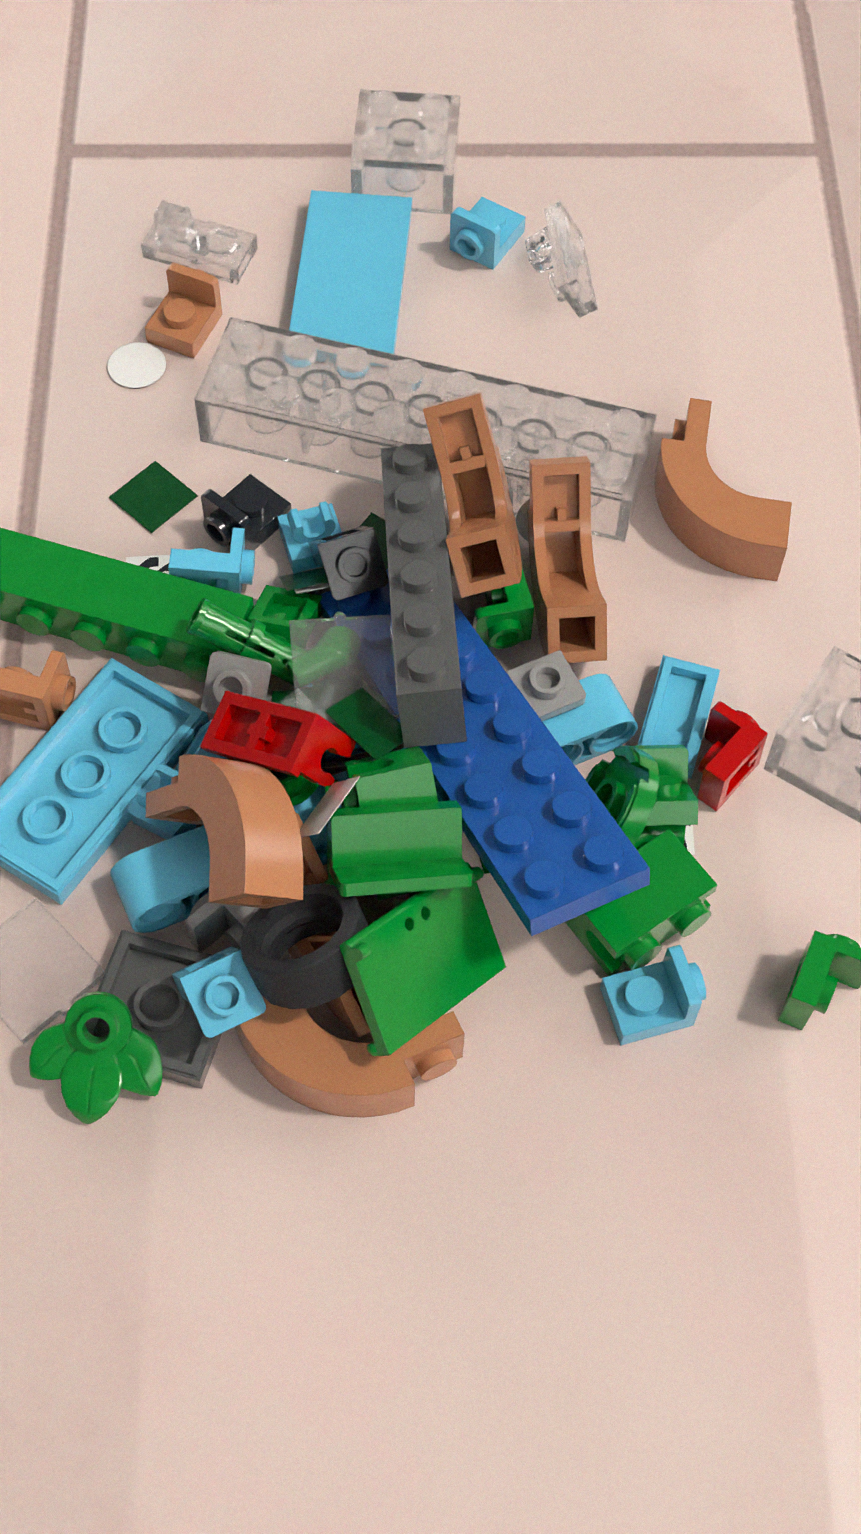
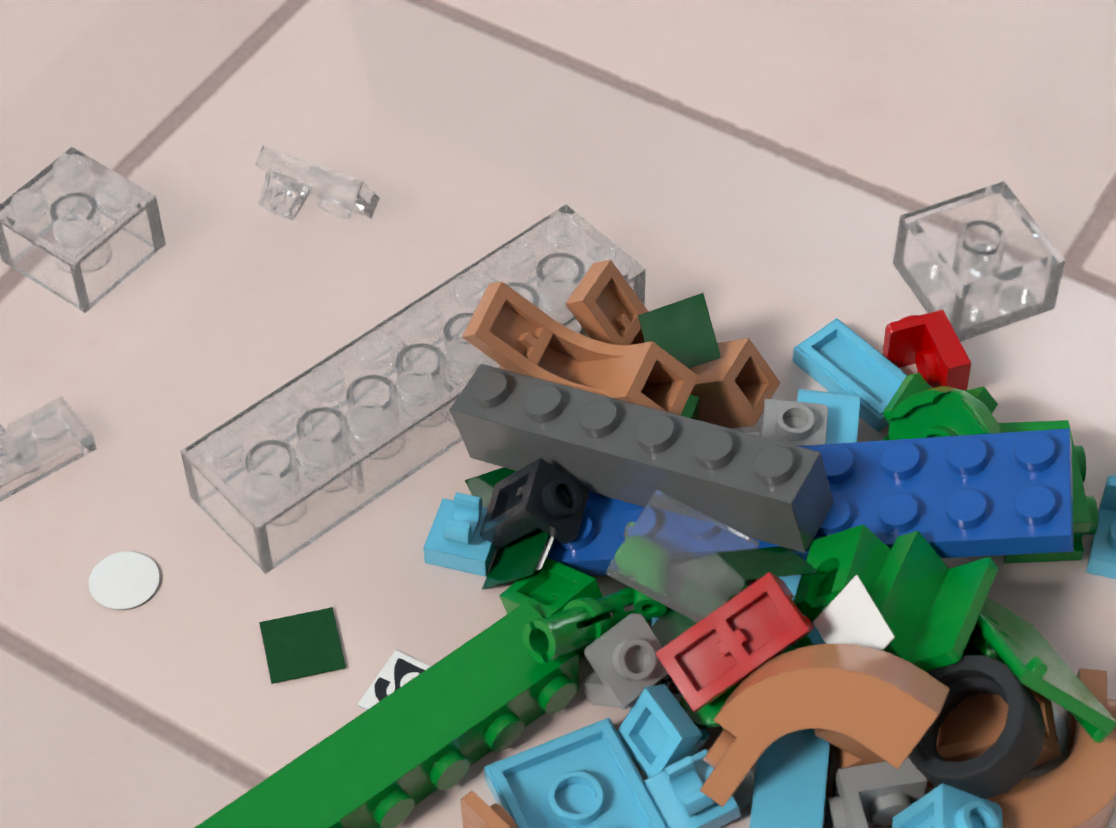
camera: 55 degrees left, 10 degrees down
(186, 311) = (104, 500): nougat bracket -> none
(216, 568) = (457, 613): medium azure bracket -> none
(246, 506) = (396, 575): black bracket -> none
(352, 268) = (172, 348): medium azure tile -> none
(485, 232) = (221, 227): medium azure bracket -> none
(574, 558) = (683, 331): none -> dark green sticker
(707, 515) = (677, 236): nougat arch -> none

